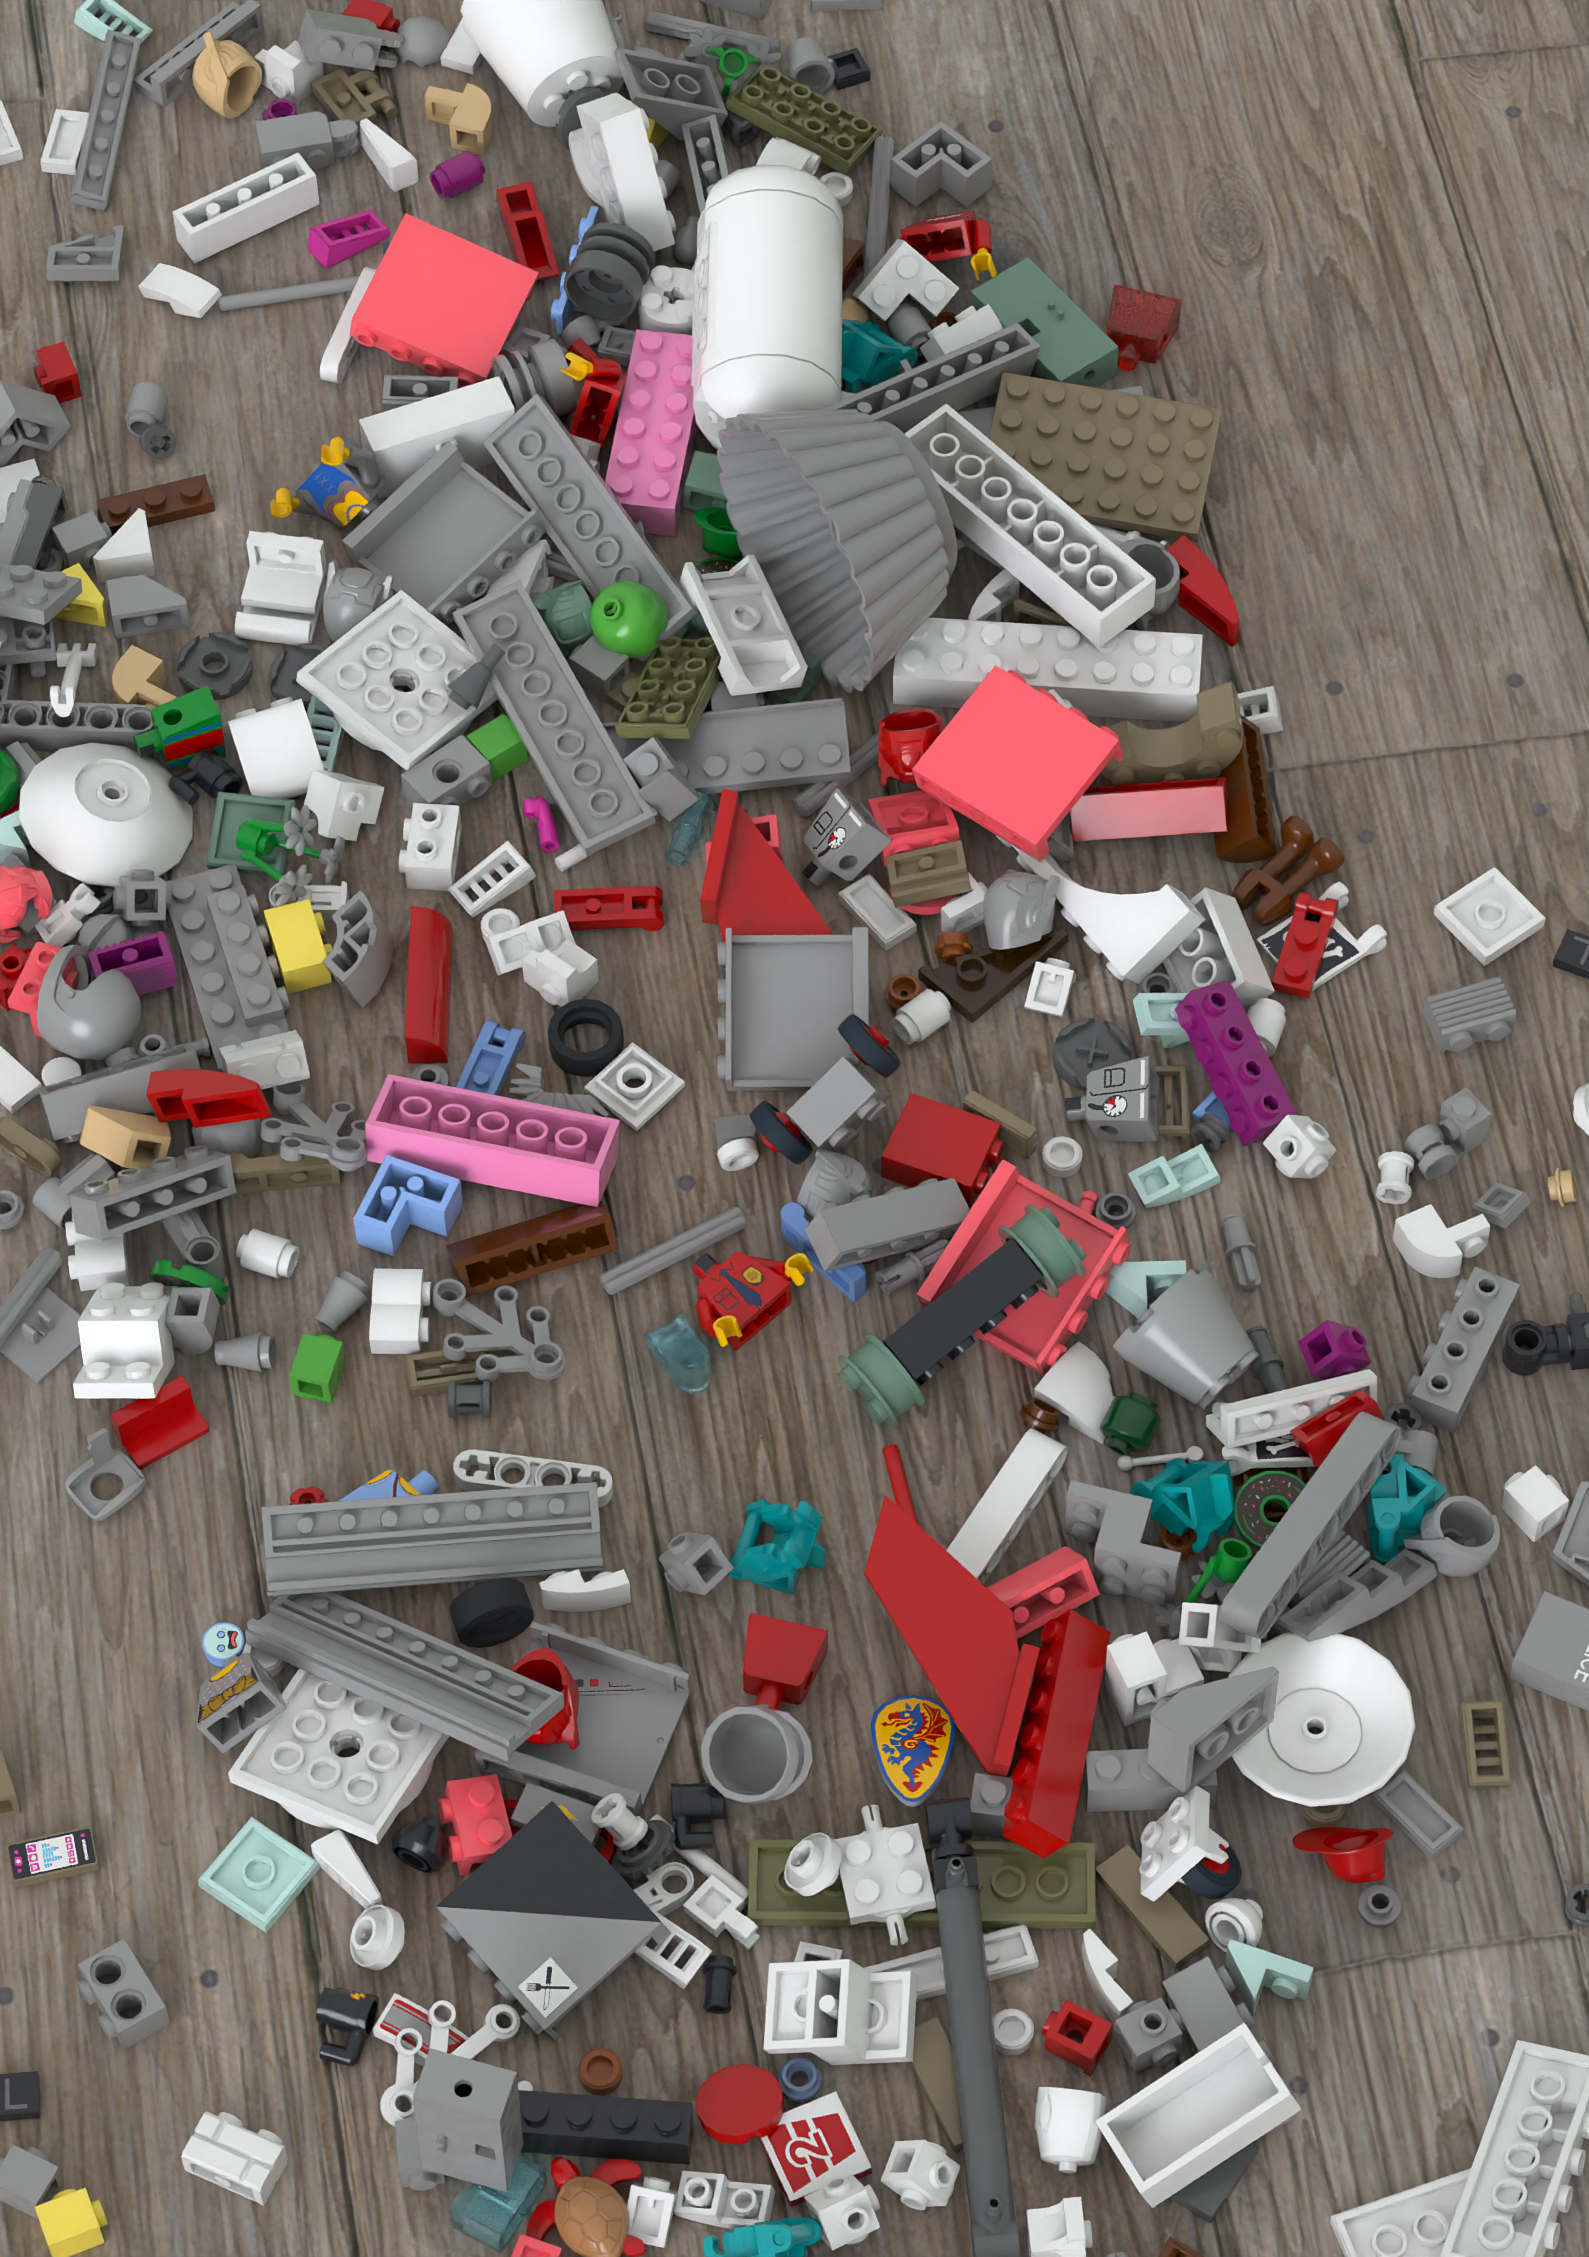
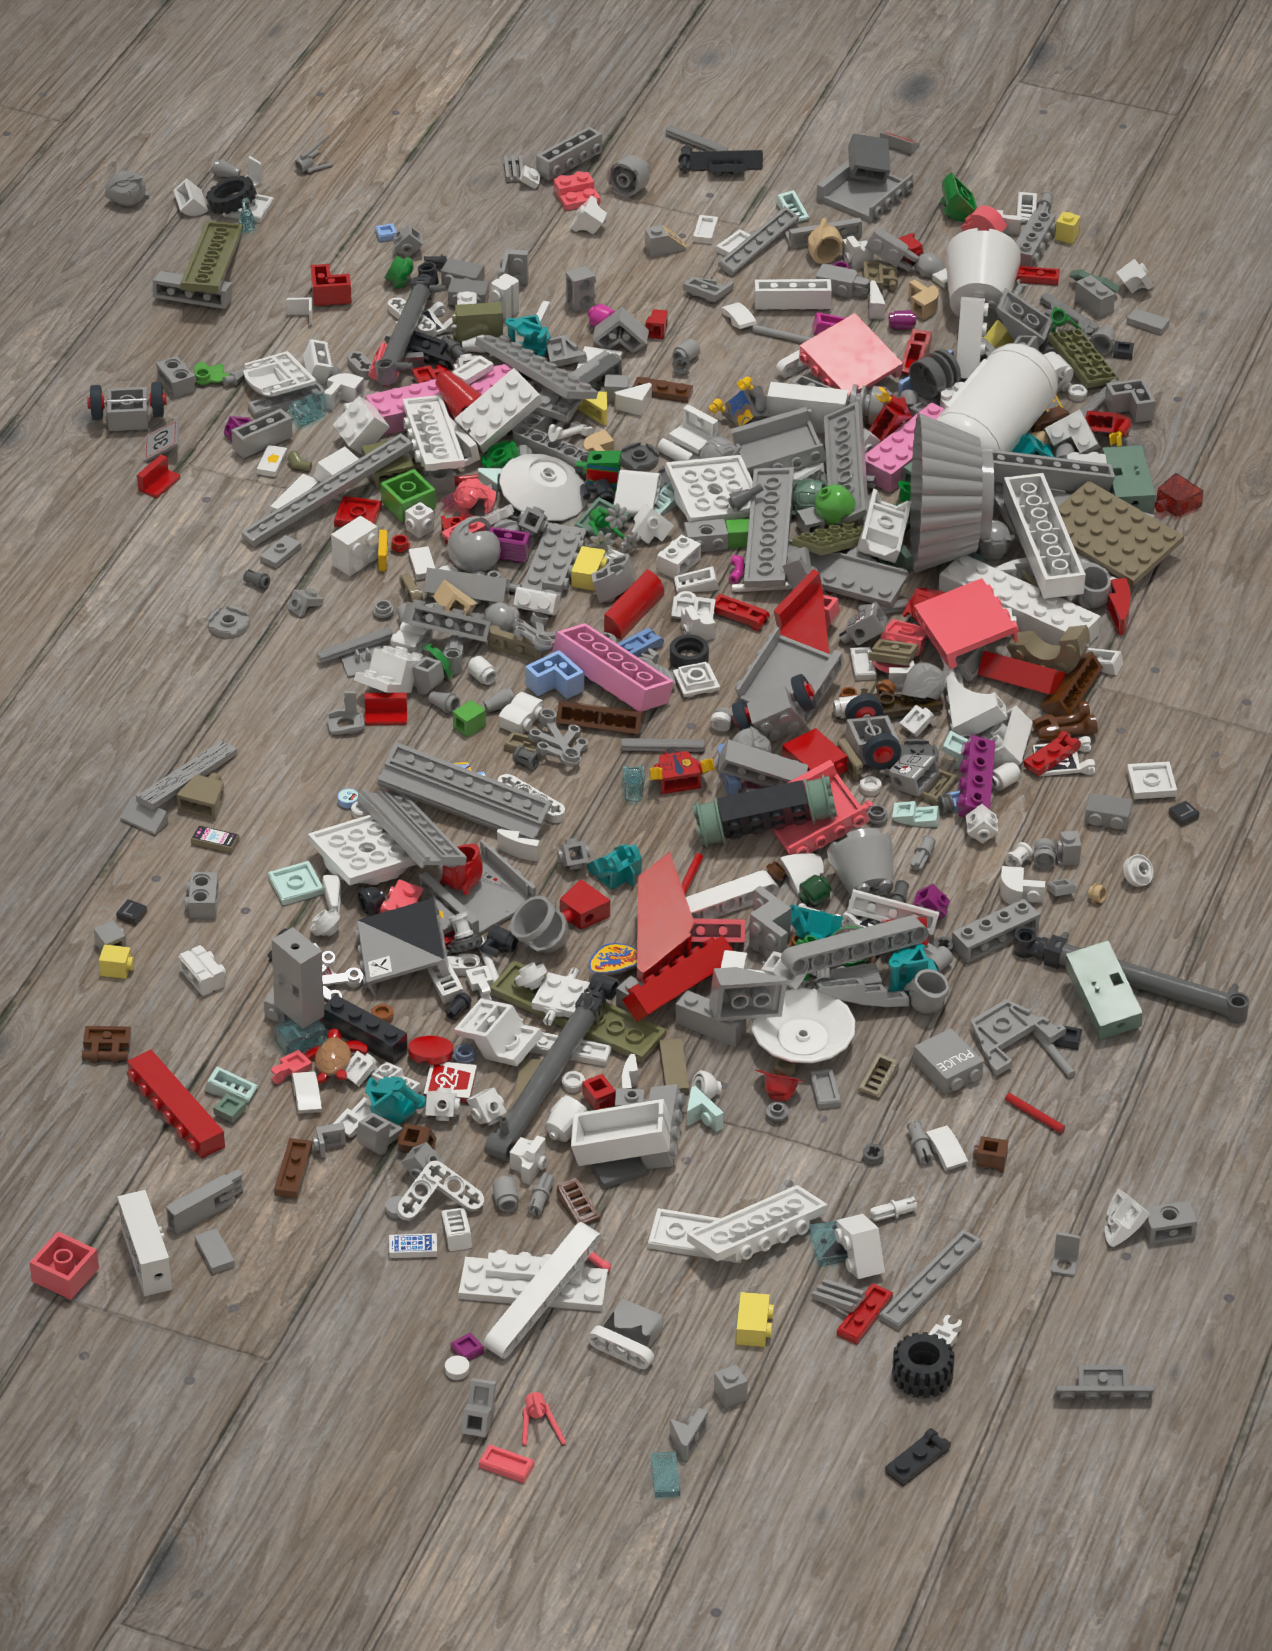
camera: 30 degrees right, 15 degrees down
(145, 606) = (623, 421): light grey slope -> none
(205, 1097) = (494, 594): red slope -> none
(237, 1701) = (336, 813): light grey torso -> none
(491, 1612) = (470, 819): black tyre -> none
(1011, 1060) = (871, 733): none -> brick
(1187, 1851) = (704, 1048): white plate -> none
(1534, 1502) = (978, 998): white brick -> none

